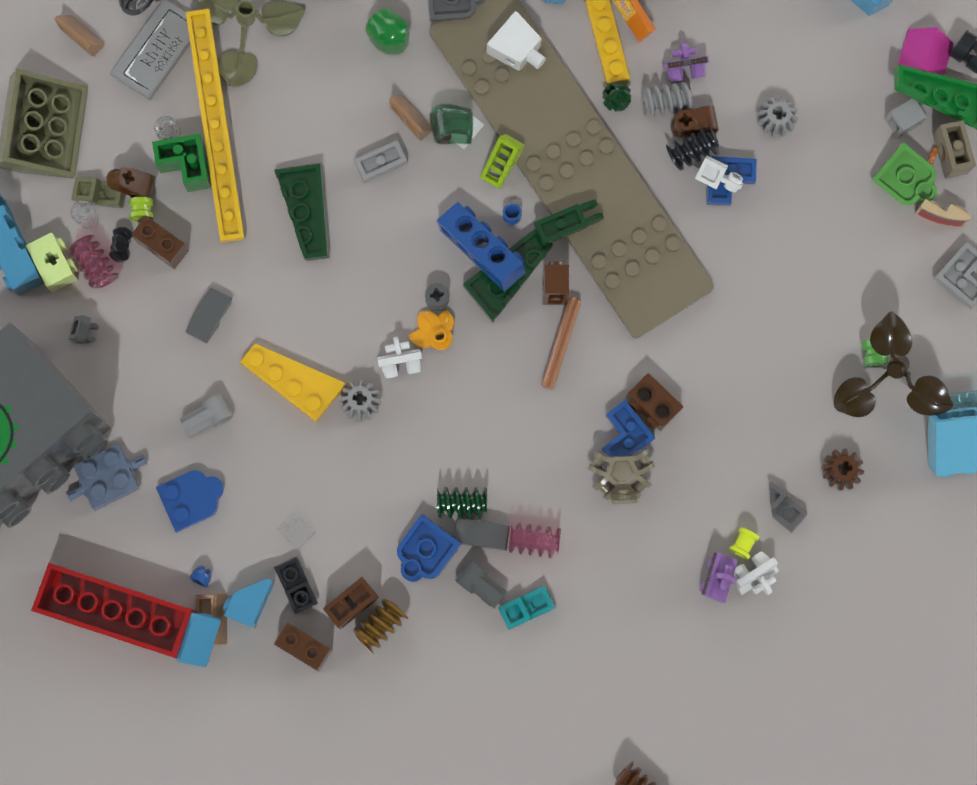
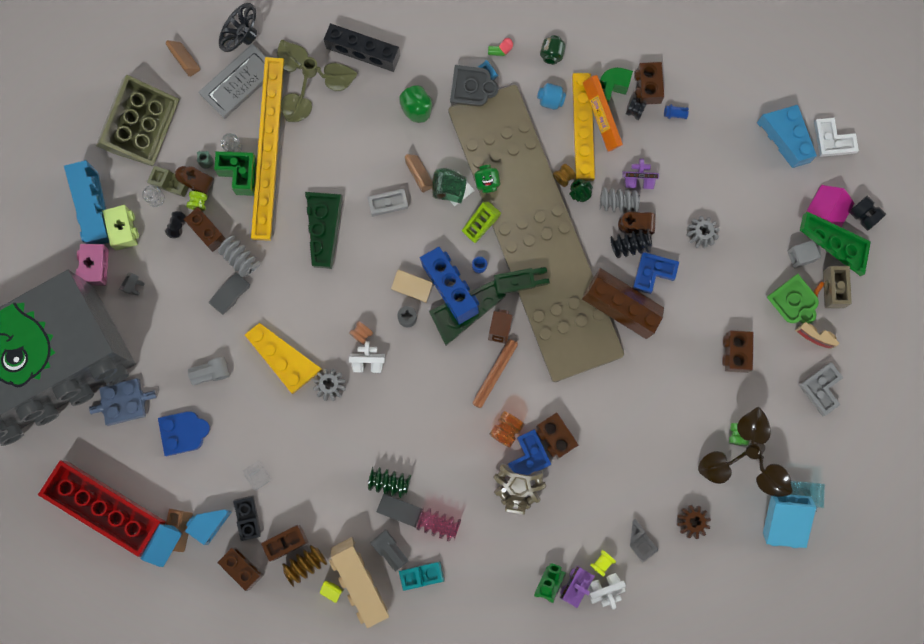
camera: 15 degrees right, 0 degrees up
(29, 301) = (98, 272): none -> bright pink brick
(91, 263) = (149, 235): clear pink piece -> none
(142, 159) = (208, 162): none -> sand green hose
(201, 576) = (176, 495): blue hinge -> none
(208, 268) = (238, 258): none -> light grey piece
(384, 328) = (361, 332): none -> nougat wheel
(420, 650) = (331, 591): none -> neon yellow slope
(426, 550) = (353, 513): blue plate -> none
(430, 328) = (397, 339): light orange plate -> none
(434, 257) = (412, 286): none -> tan slope
(453, 631) = (358, 583): none -> tan wedge
(498, 106) = (487, 179): none -> green head
(516, 44) = (511, 134): white torso -> none
(592, 82) = (564, 175): none -> pearl gold wheel
(592, 404) = (507, 428): none -> clear orange wheel
(686, 579) = (550, 582): none -> green hips
(700, 224) = (624, 304): none -> reddish brown slope
(713, 172) = (642, 265): white plate -> none
(859, 252) = (744, 352): none -> reddish brown brick

